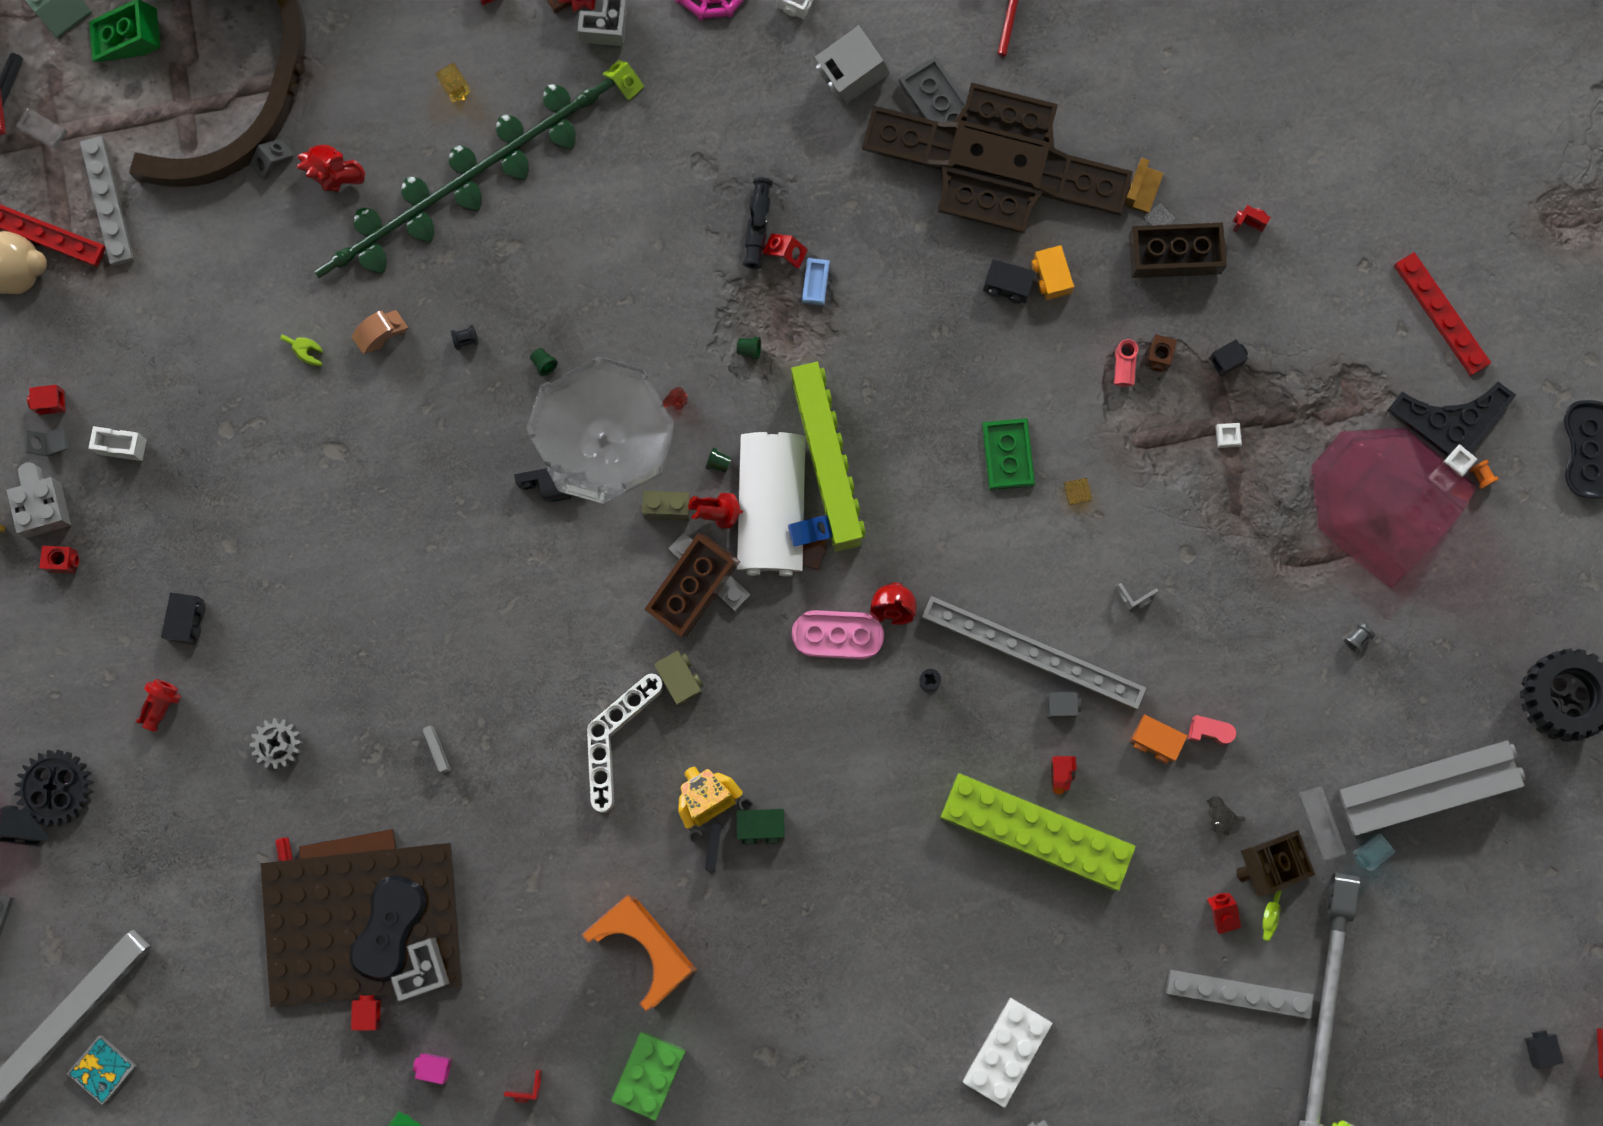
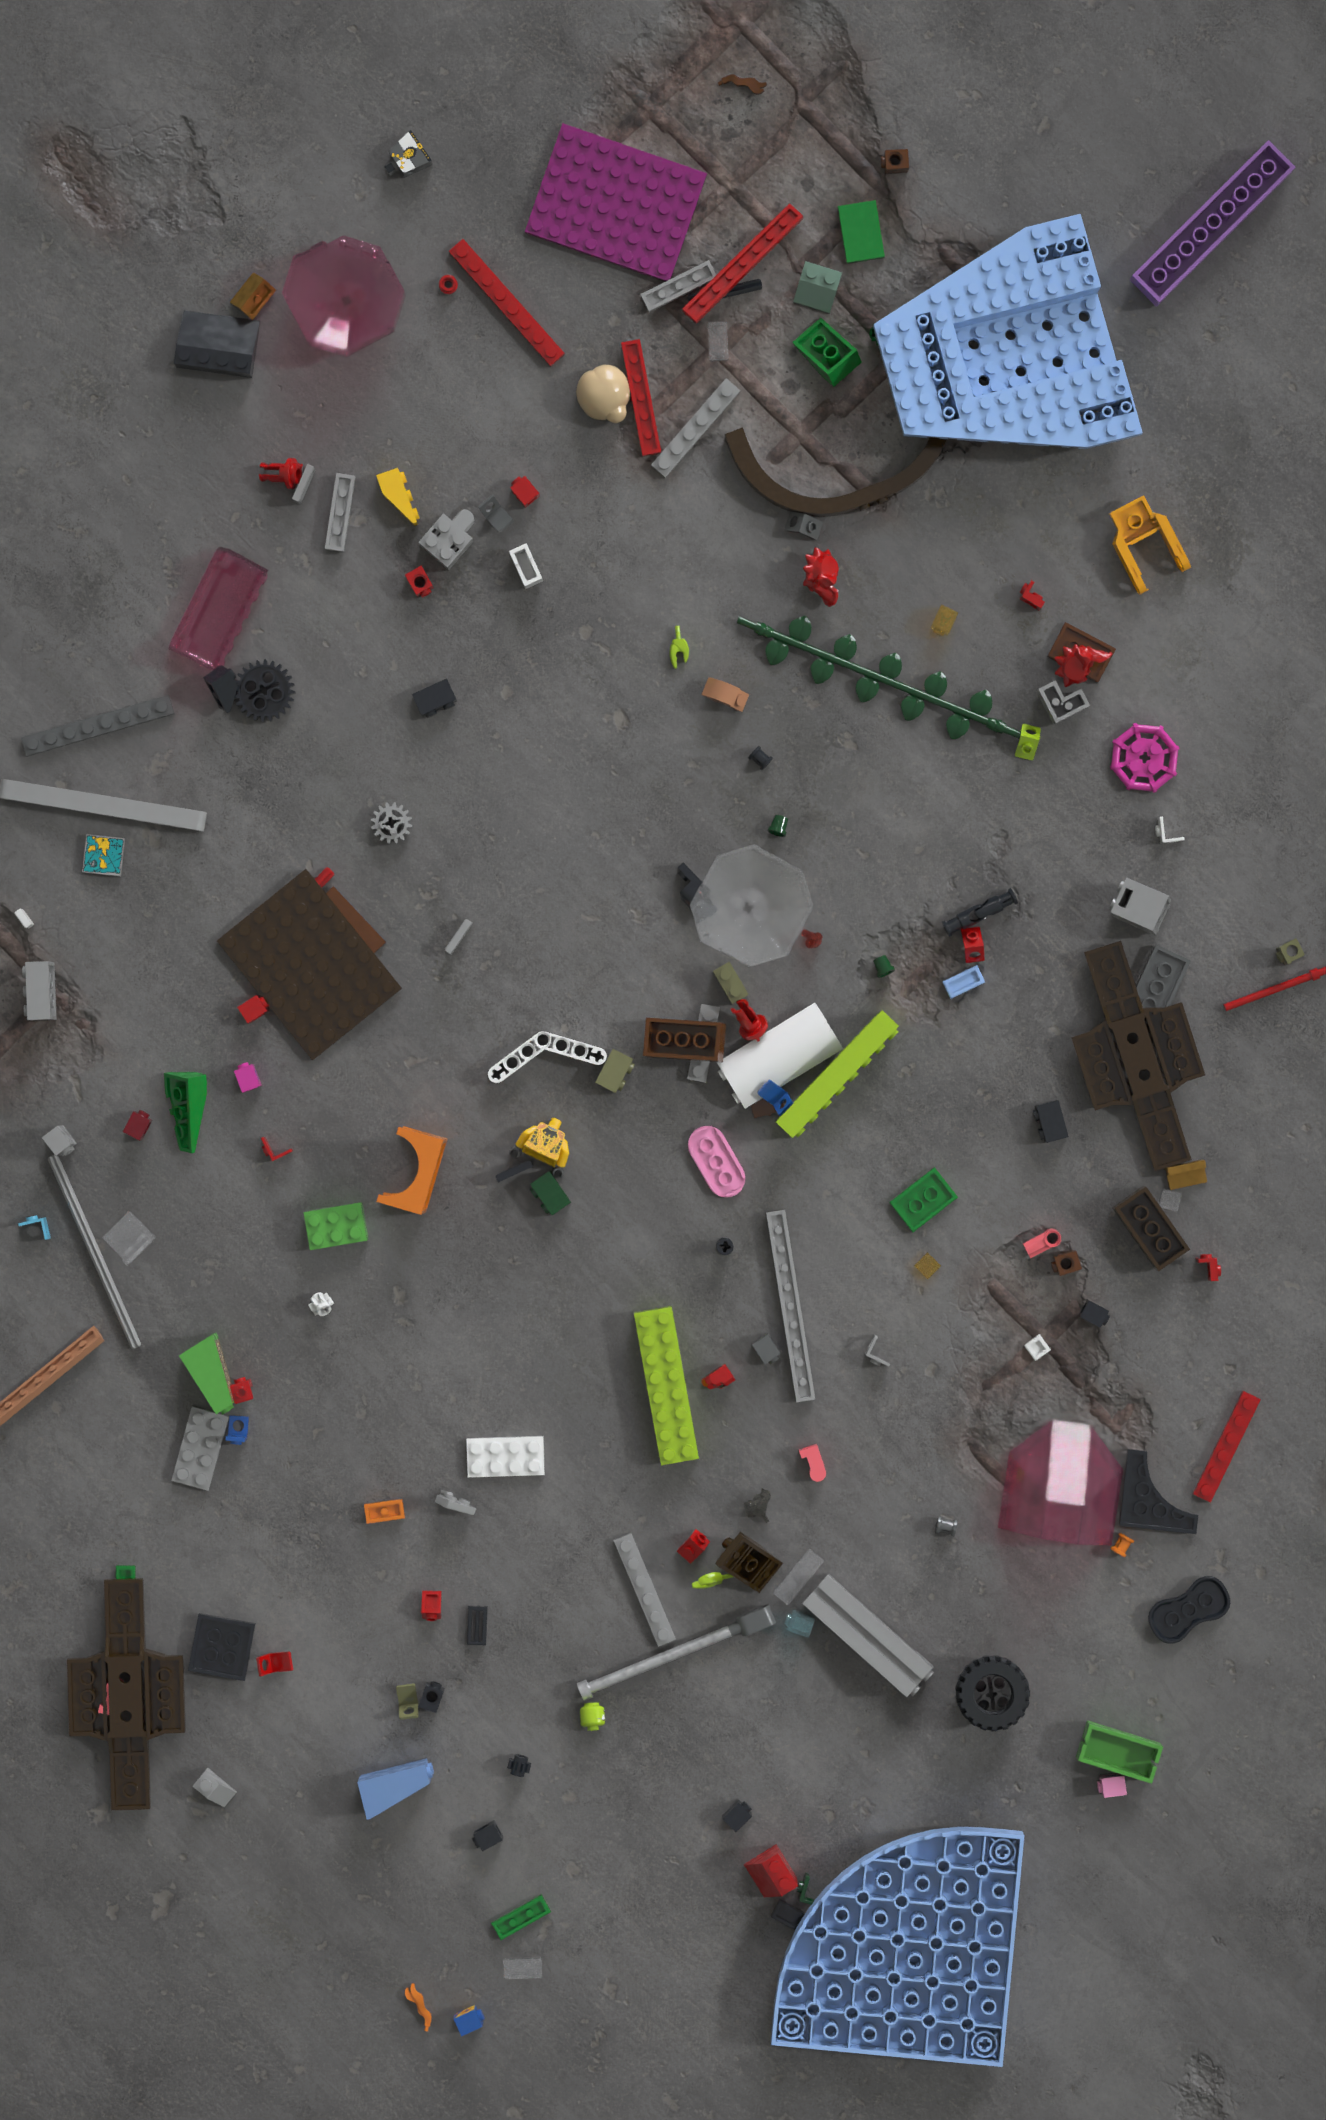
camera: 60 degrees right, 10 degrees up
(157, 703) = (364, 722): red piece -> none
(380, 947) = (333, 982): black plate -> none
(427, 973) = (306, 1034): light grey brick -> none
(718, 461) = (786, 998): dark green piece -> none
(893, 603) = (763, 1187): red cylinder -> none
(1052, 272) = (1077, 1149): light orange brick -> none
(1158, 739) = (784, 1429): orange brick -> none
(1460, 460) = (1120, 1522): white tile -> none

